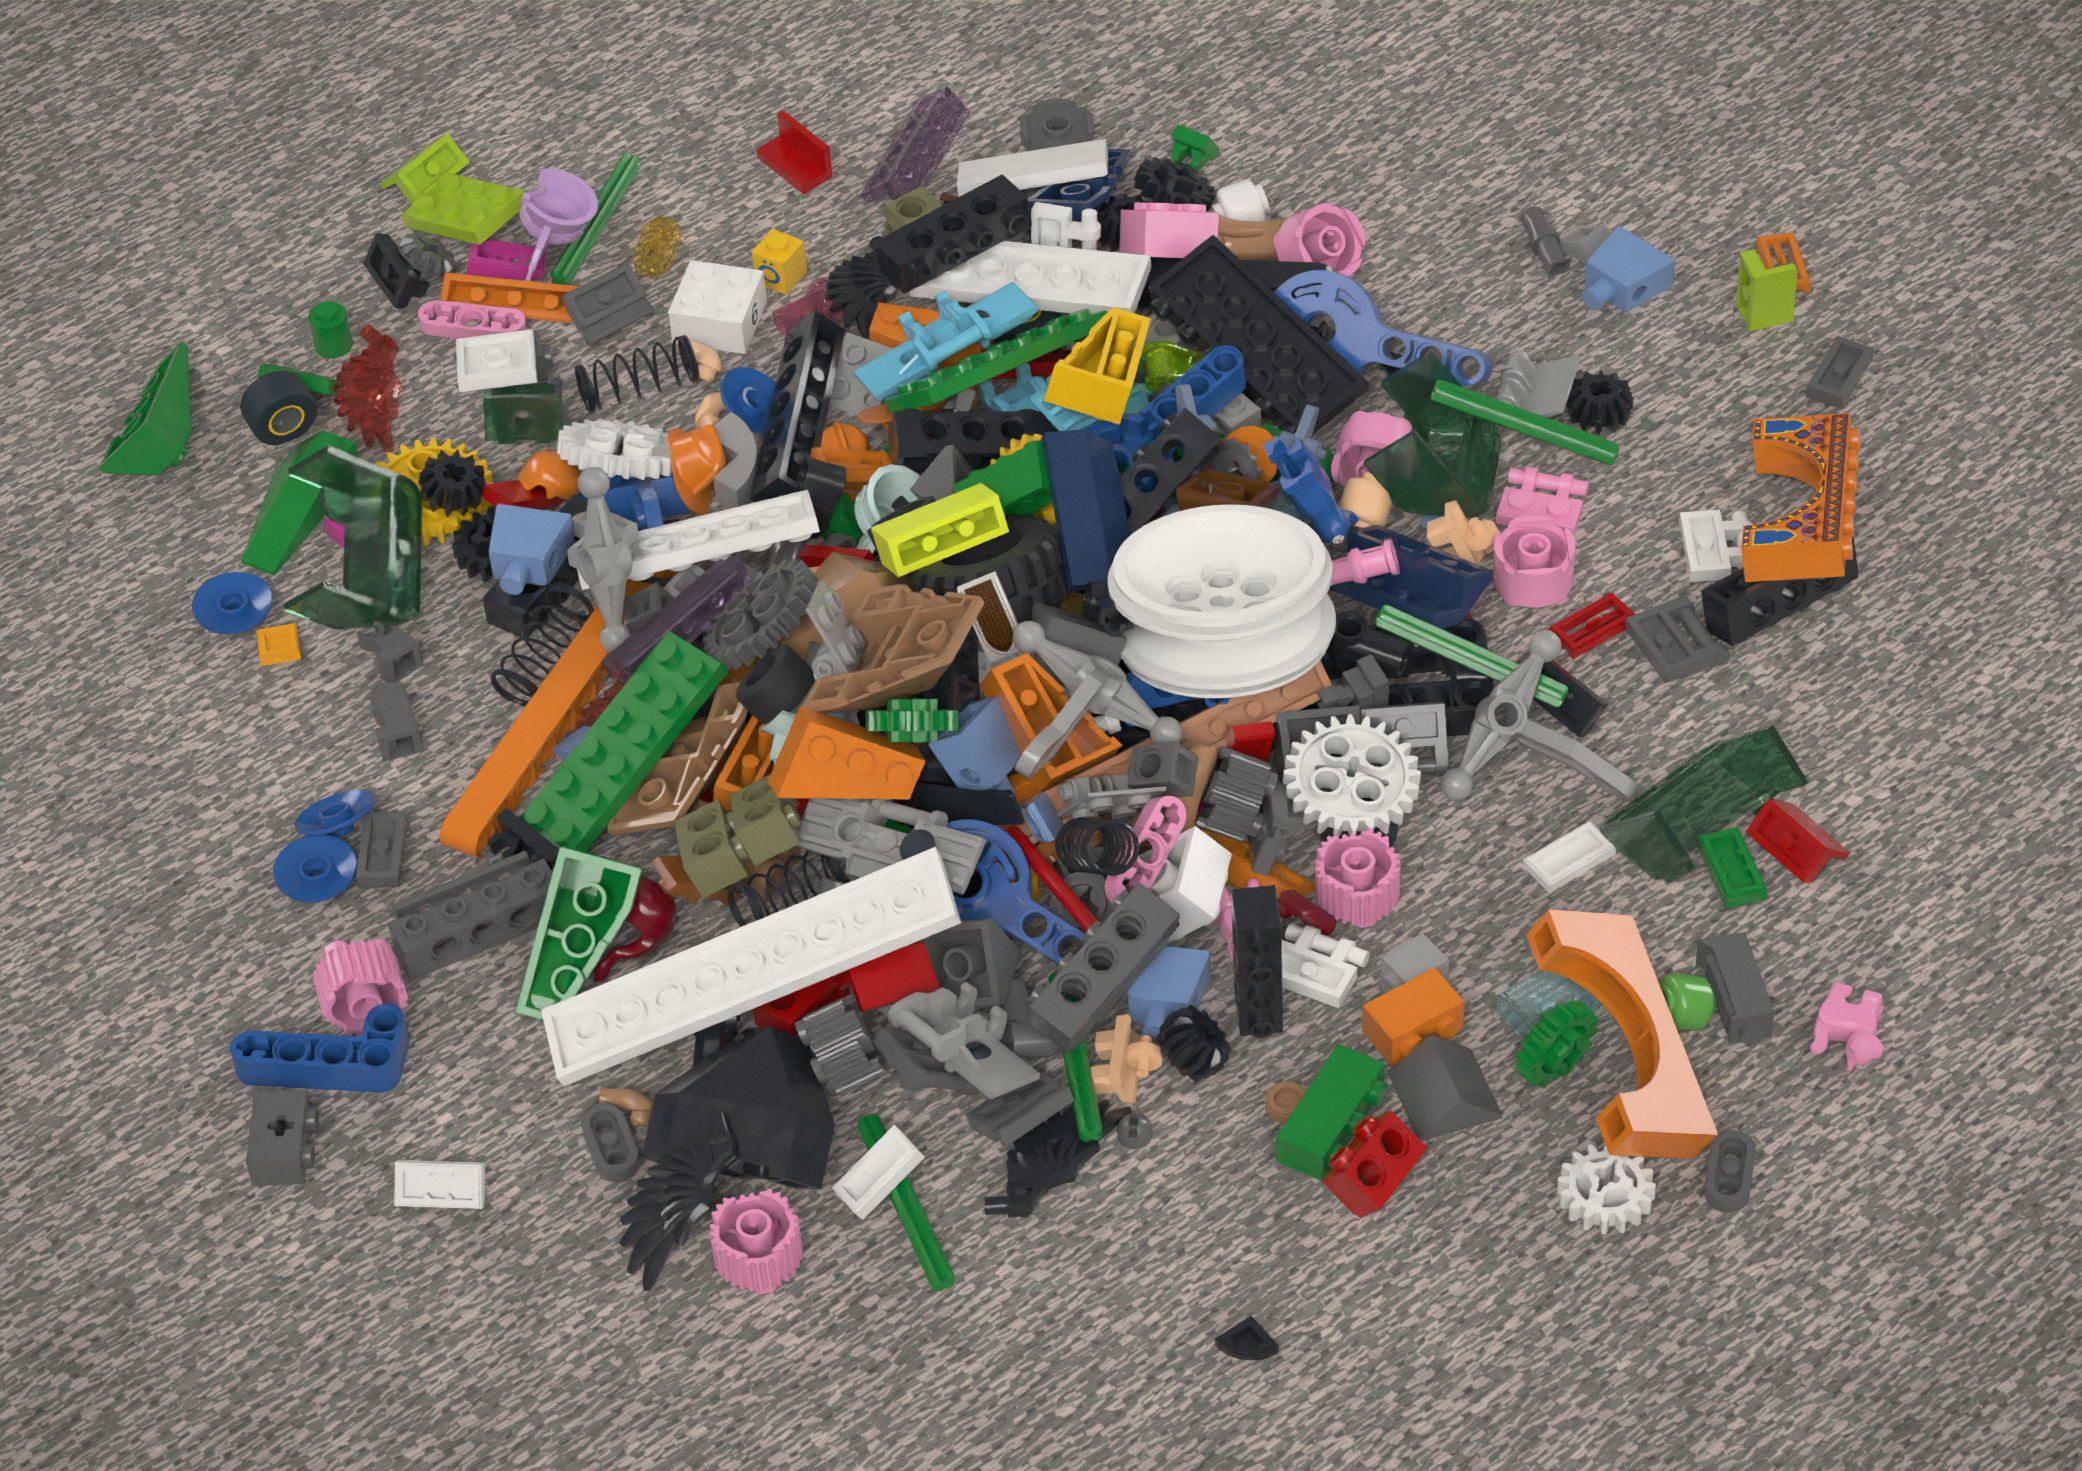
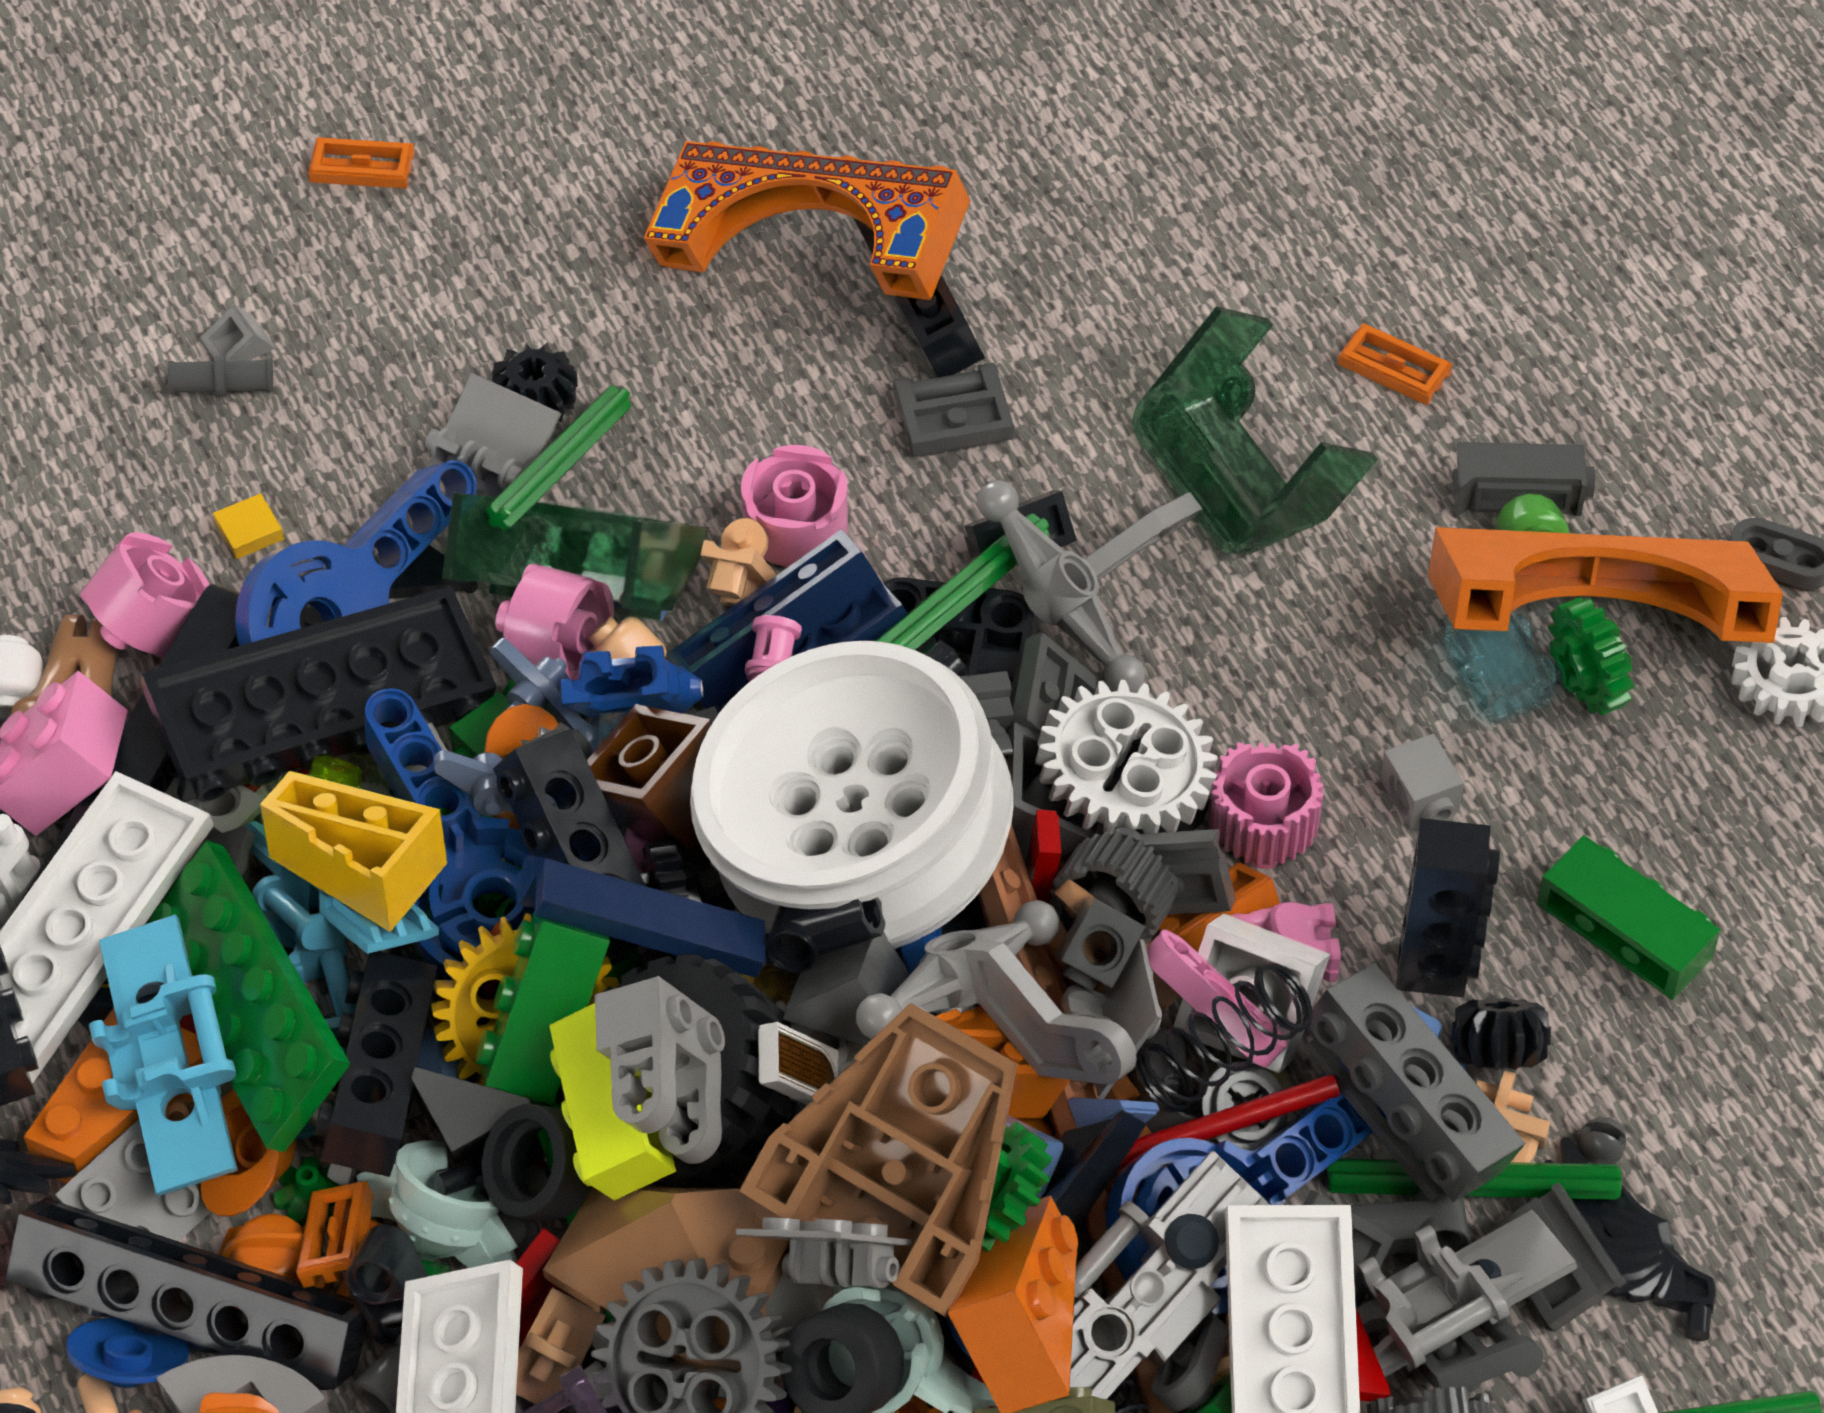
camera: 80 degrees left, 5 degrees up
(971, 533) = (676, 1052): none -> light grey brick
(1282, 1100) = (1587, 966): medium nougat tile -> none
(1296, 904) = (1296, 874): dark red arm -> none
(1316, 974) = (1378, 905): white plate -> none
(1379, 1168) = (1728, 884): red brick -> none
(1411, 1013) = (1506, 793): orange brick -> none
(1420, 292) = (248, 526): none -> yellow tile
(1443, 1089) = (1609, 800): dark grey slope -> none
(1527, 502) = (686, 492): bright pink plate -> none
(1569, 856) = (1263, 595): white tile -> none
(1596, 630) = (910, 517): red tile -> none
(1626, 272) = (317, 307): medium blue torso -> none
(1705, 543) = (814, 334): white plate -> none
(1732, 867) = (1299, 437): green plate -> none
(1764, 294) = (429, 180): lime panel -> none
(1794, 839) = (1305, 376): red panel -> none
(1830, 925) = (1391, 369): none -> orange tile
(1839, 372) = (574, 153): dark grey plate -> none
(1850, 1024) = (1585, 392): bright pink animal -> none

